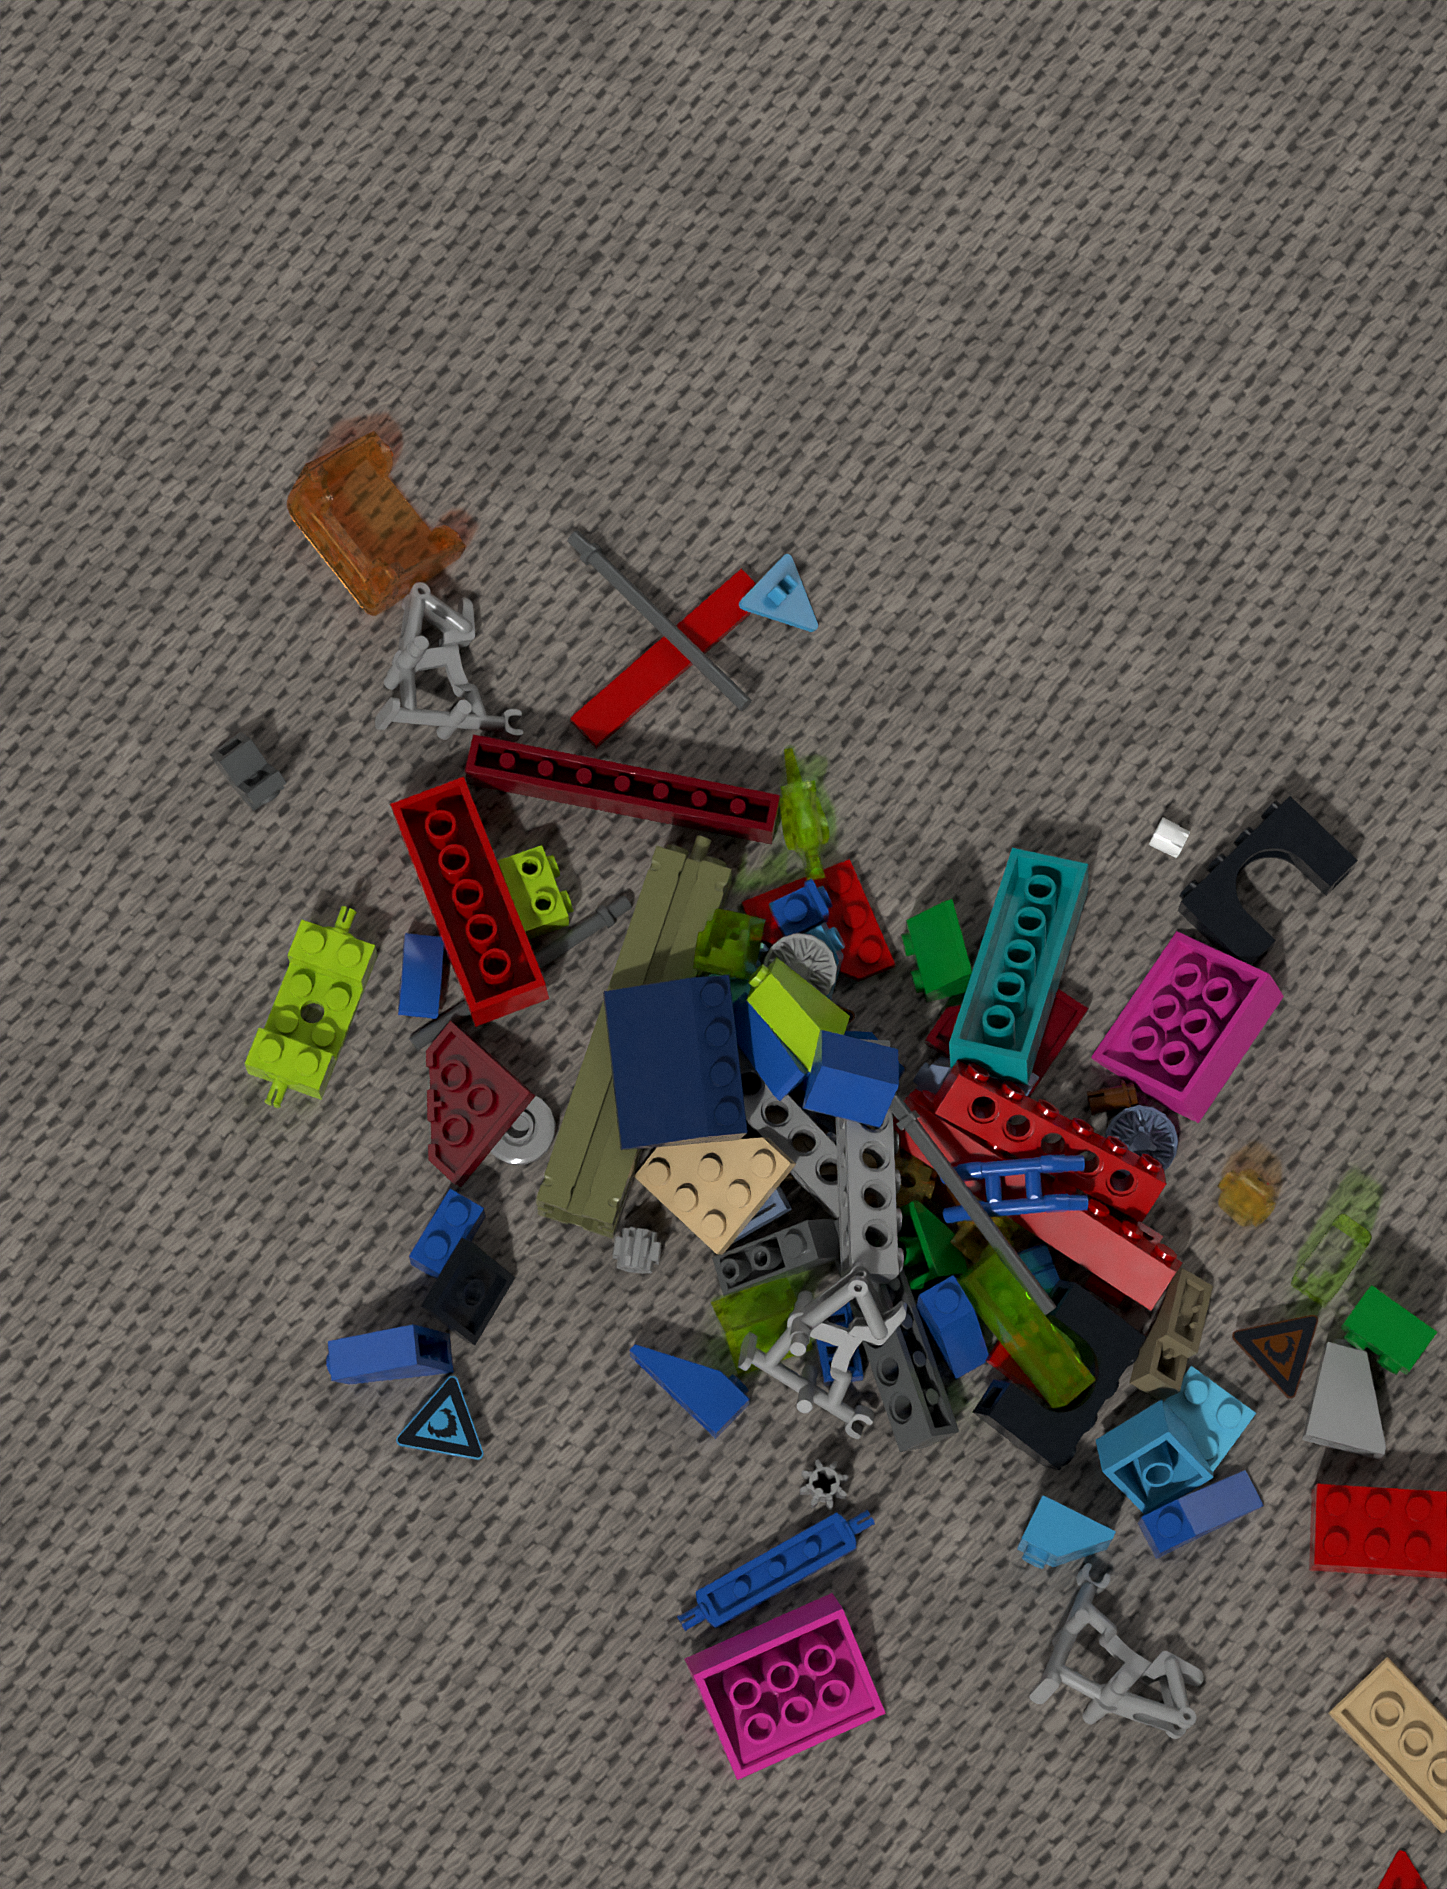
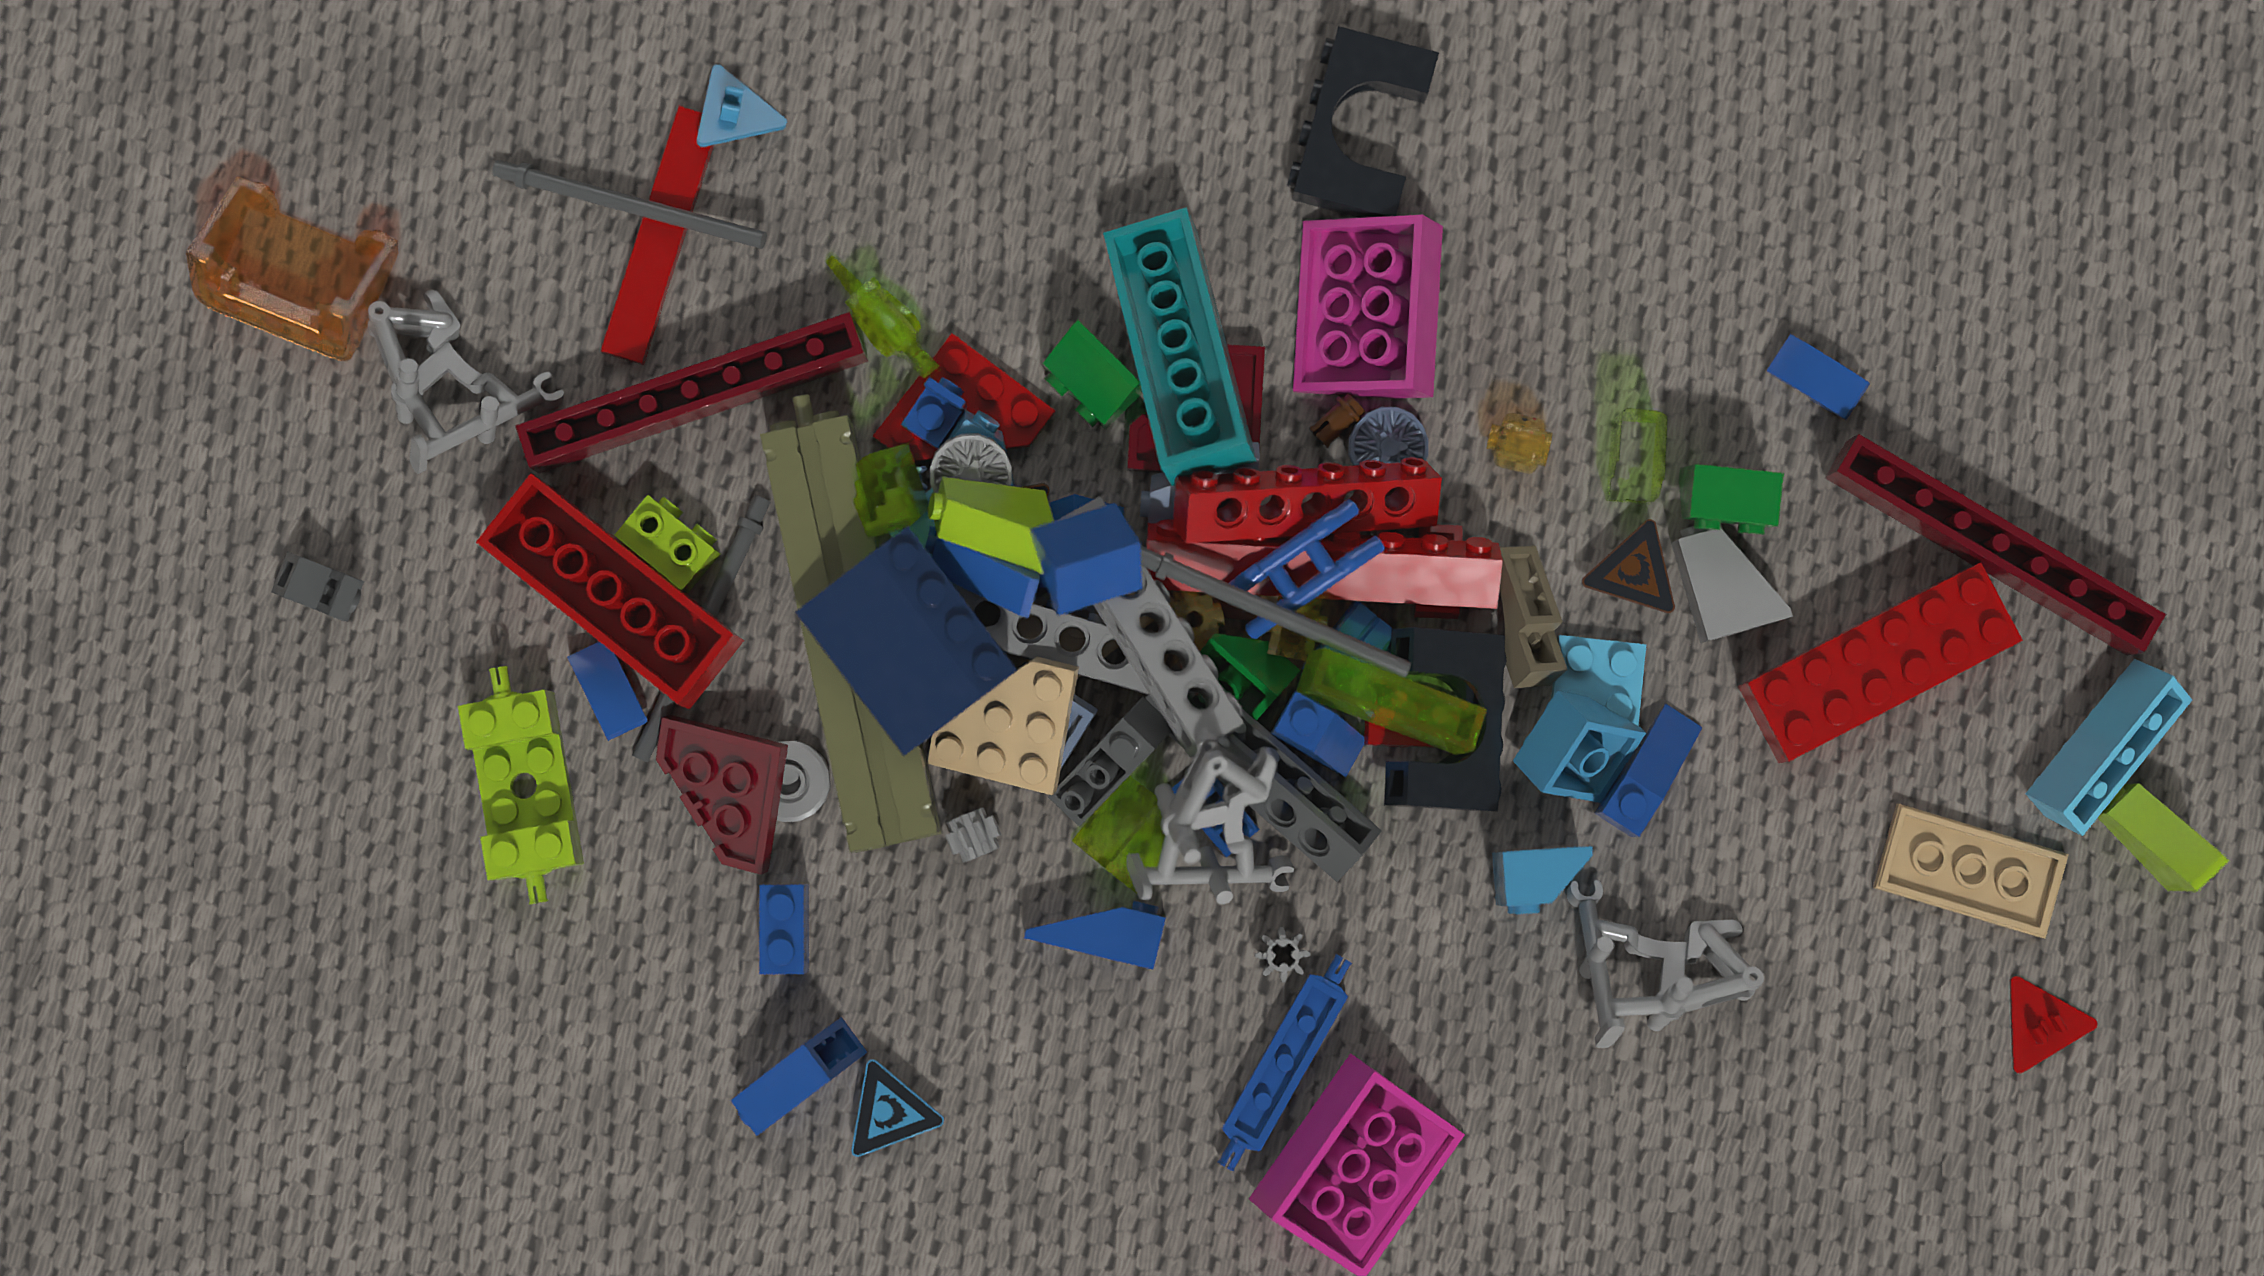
camera: 30 degrees left, 10 degrees up
(468, 1291) = (836, 972): black plate -> none
(1169, 837) = (1244, 133): white hose -> none

